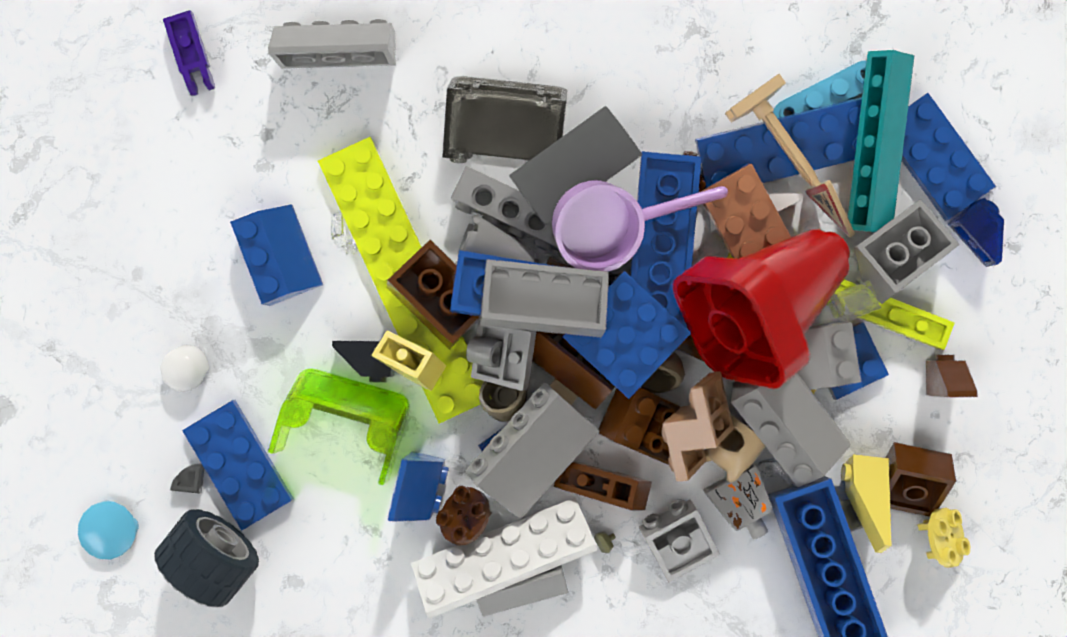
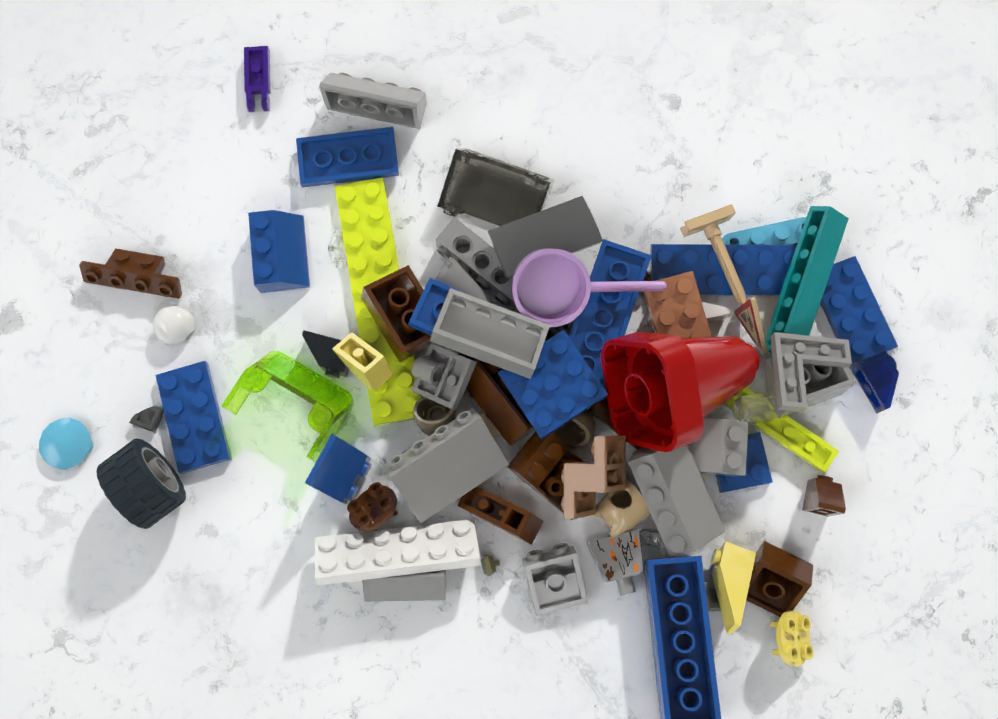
camera: 10 degrees right, 10 degrees down
(119, 320) = (132, 272): none -> reddish brown bracket
(322, 122) = (347, 157): none -> blue plate
(880, 239) = (790, 354): none -> light grey plate

